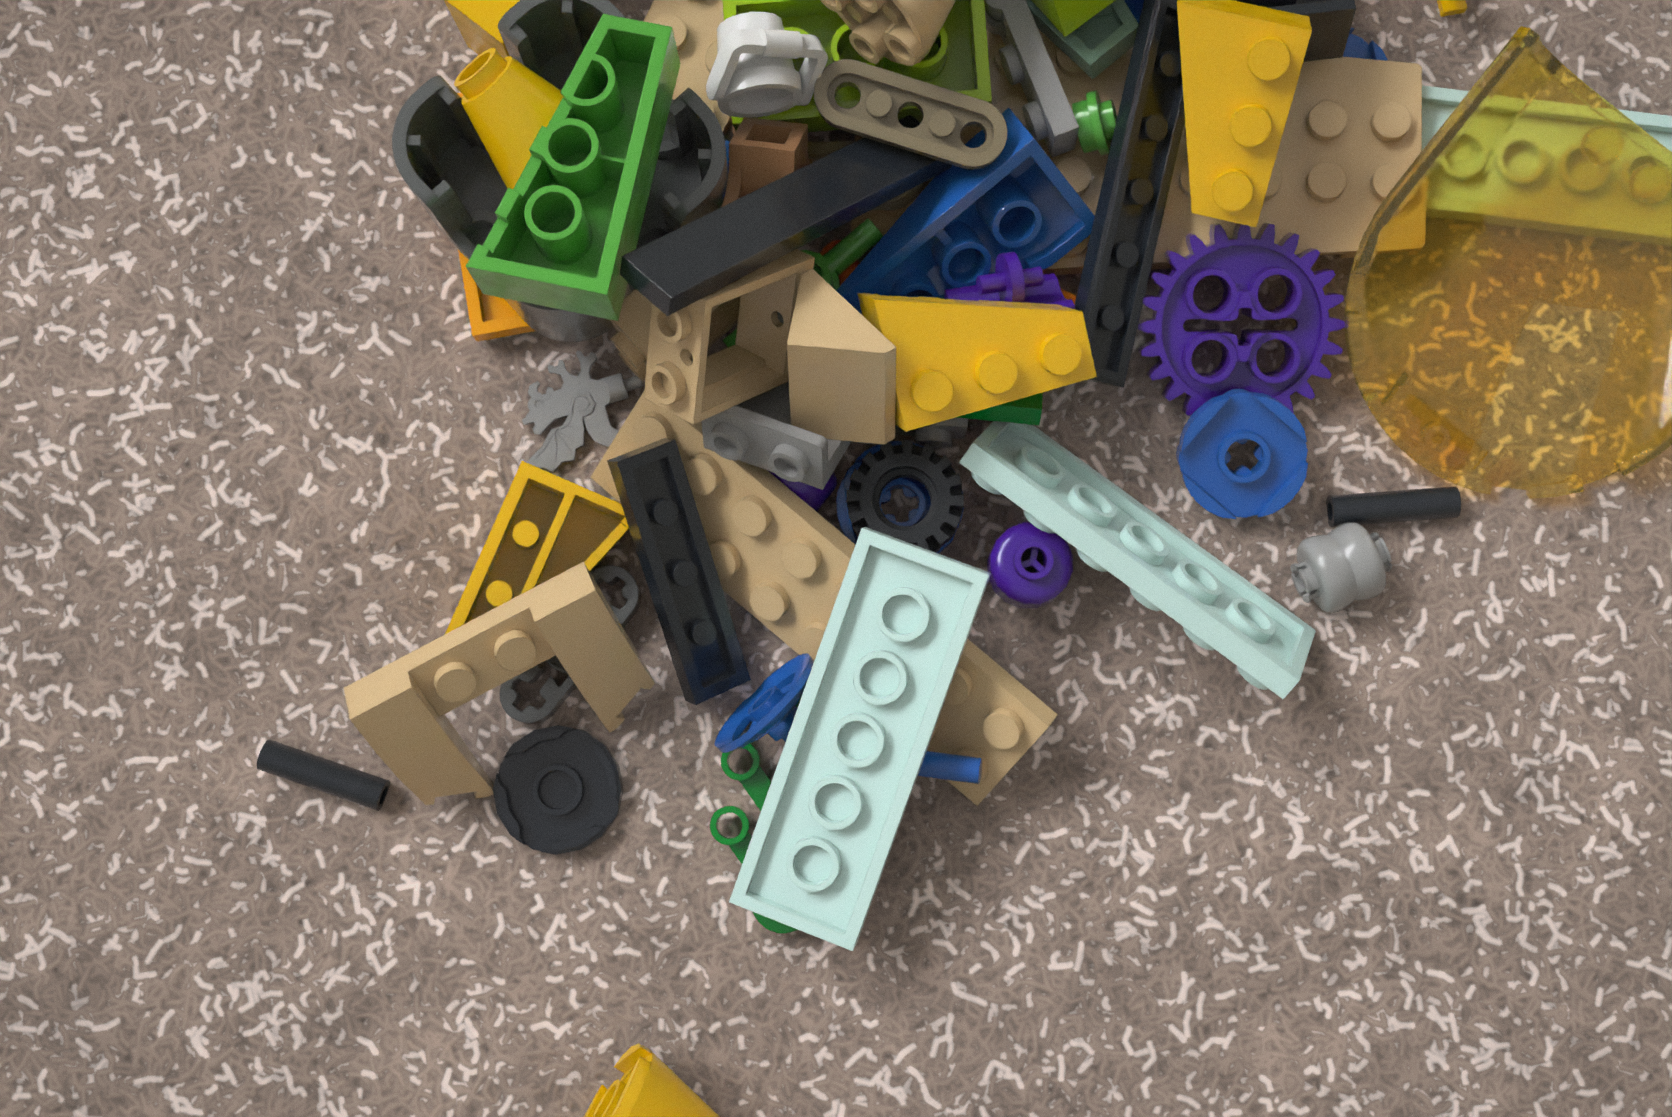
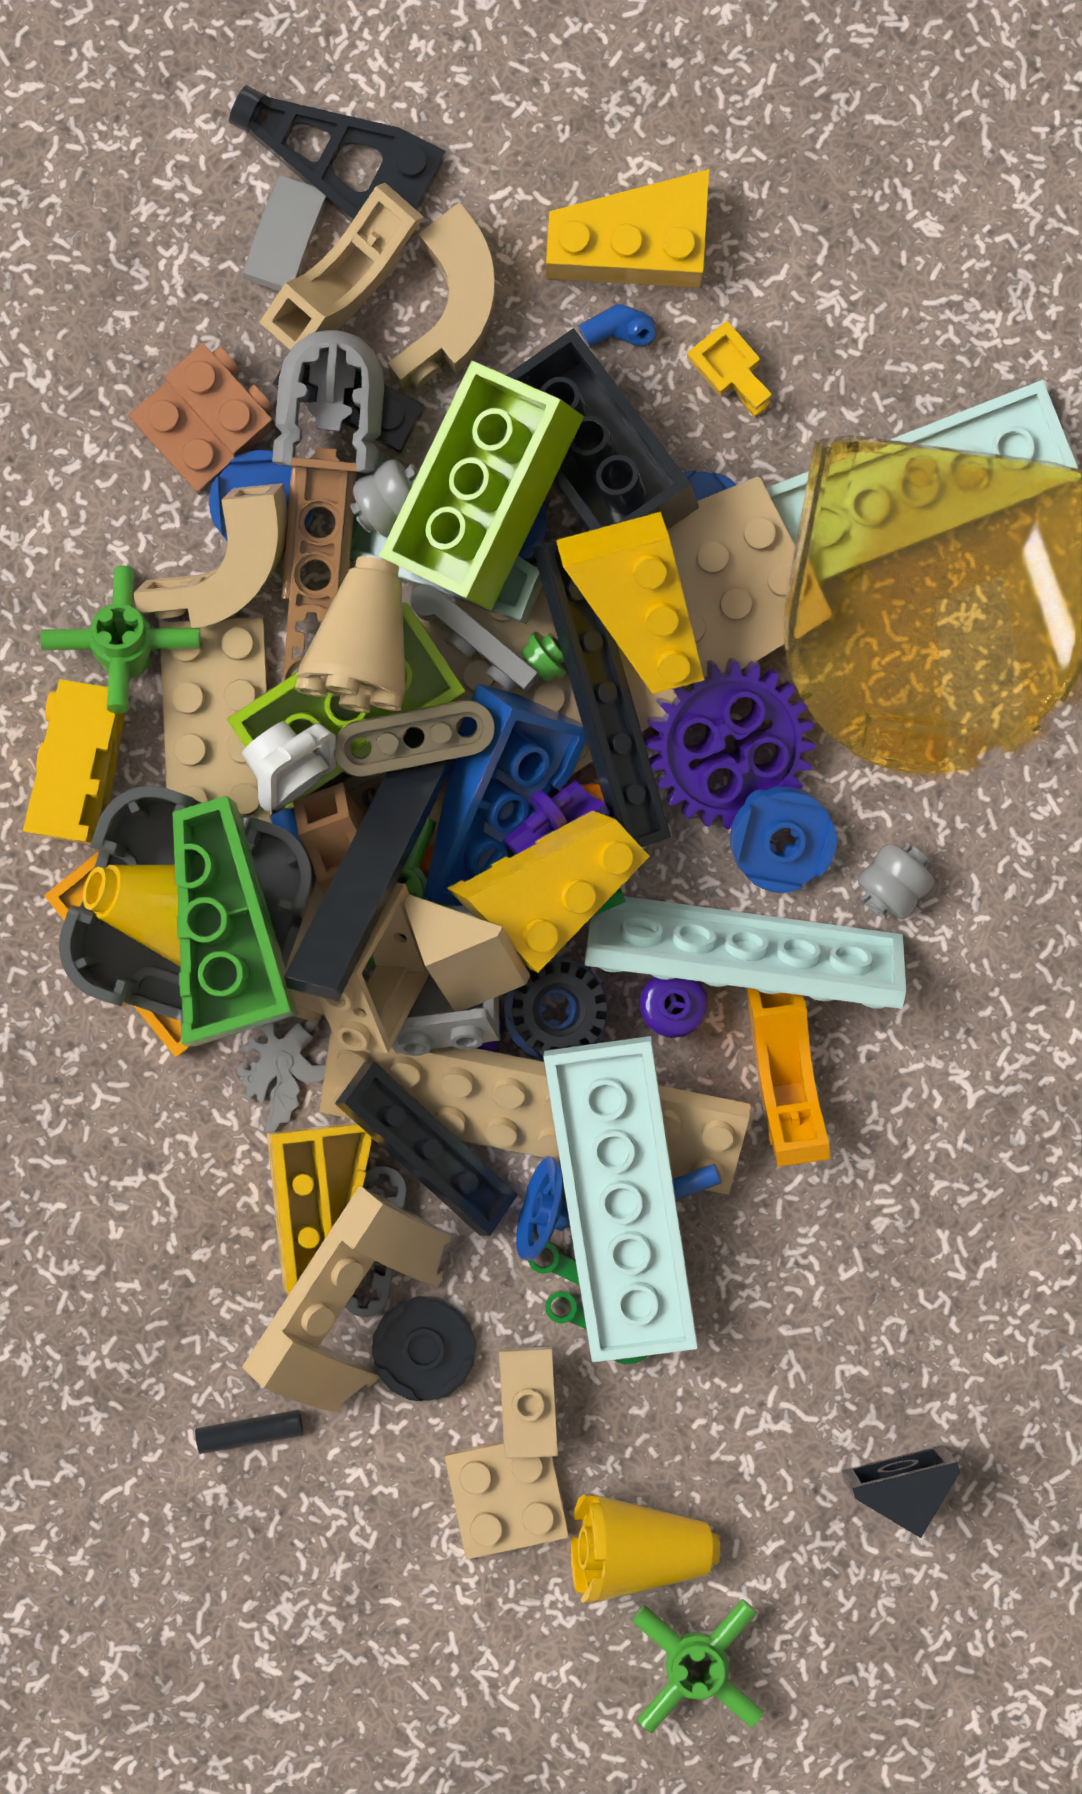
camera: 30 degrees left, 5 degrees up
(556, 999) = (504, 1500): none -> tan plate
(635, 908) = (528, 1402): none -> tan brick
(1111, 706) = (787, 1077): none -> light orange arch
(1394, 506) = (911, 812): black piece -> none

